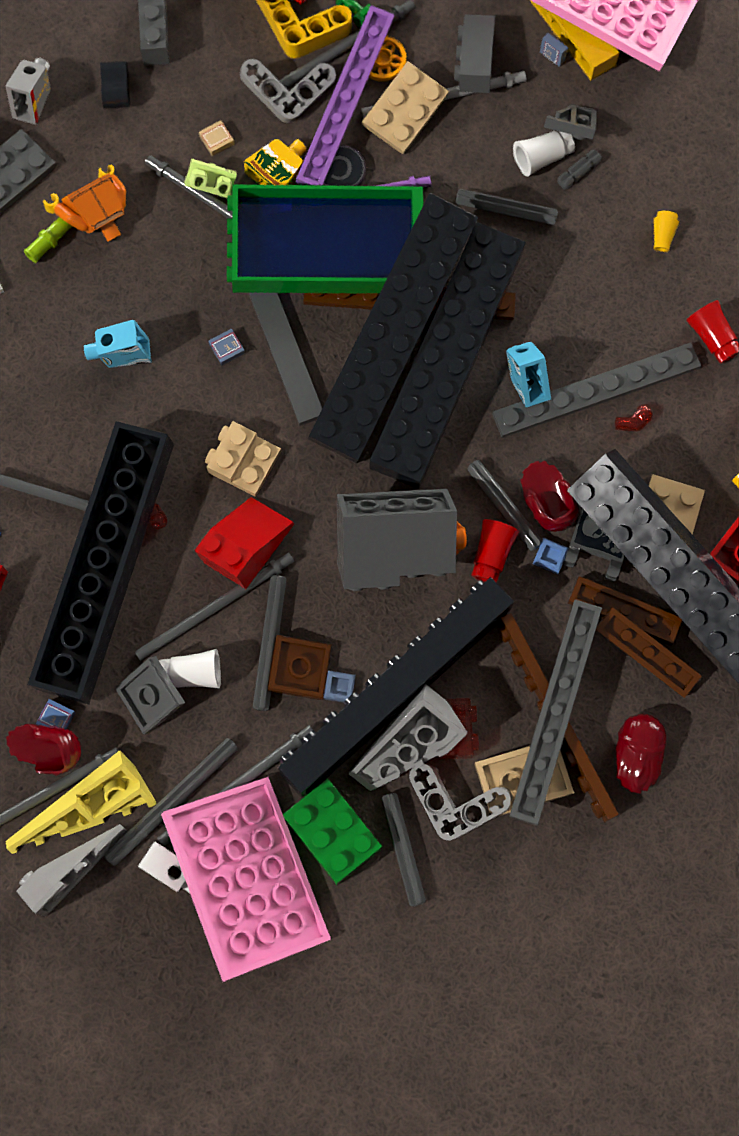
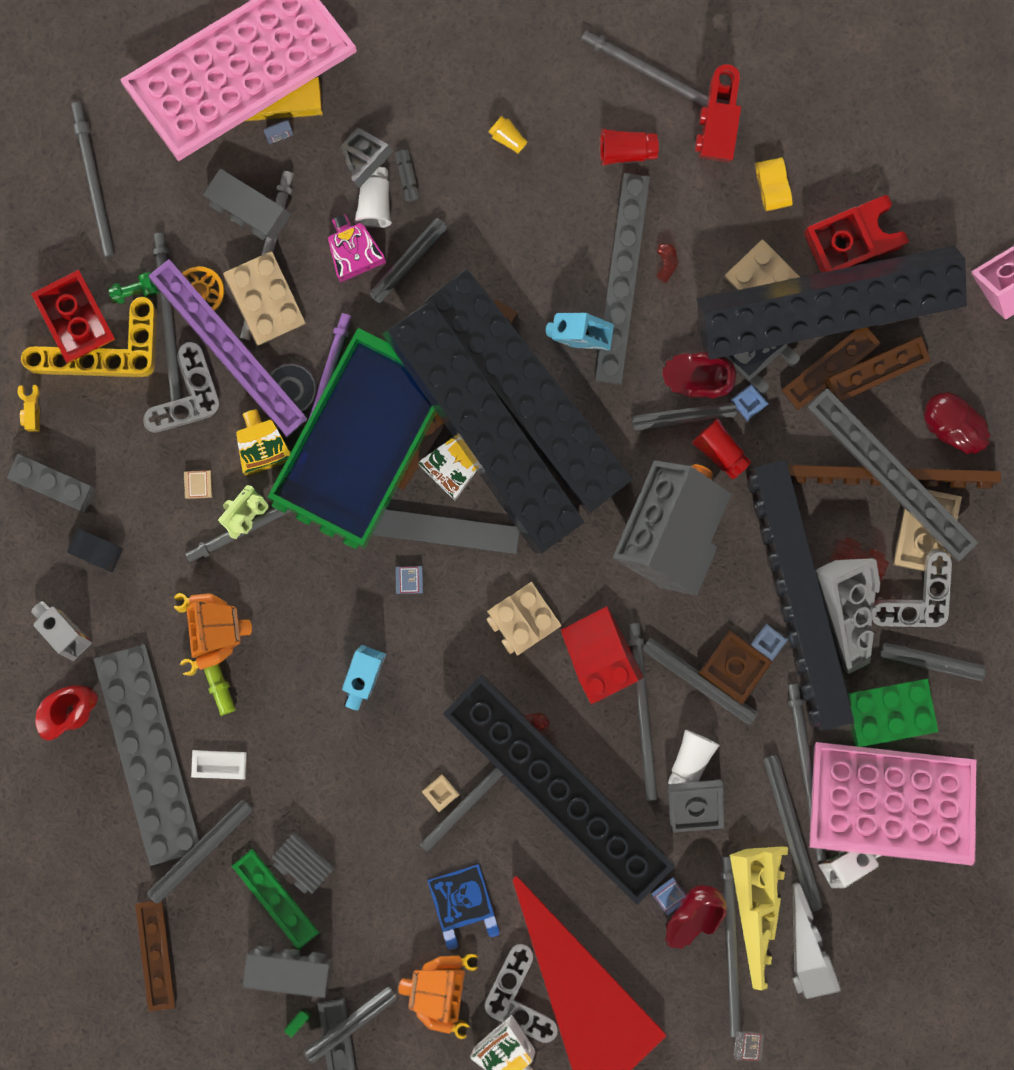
camera: 60 degrees left, 10 degrees up
(49, 468) = (440, 793): none -> tan tile
(341, 327) = (449, 468): none -> torso
(488, 156) = (353, 249): none -> dark pink torso

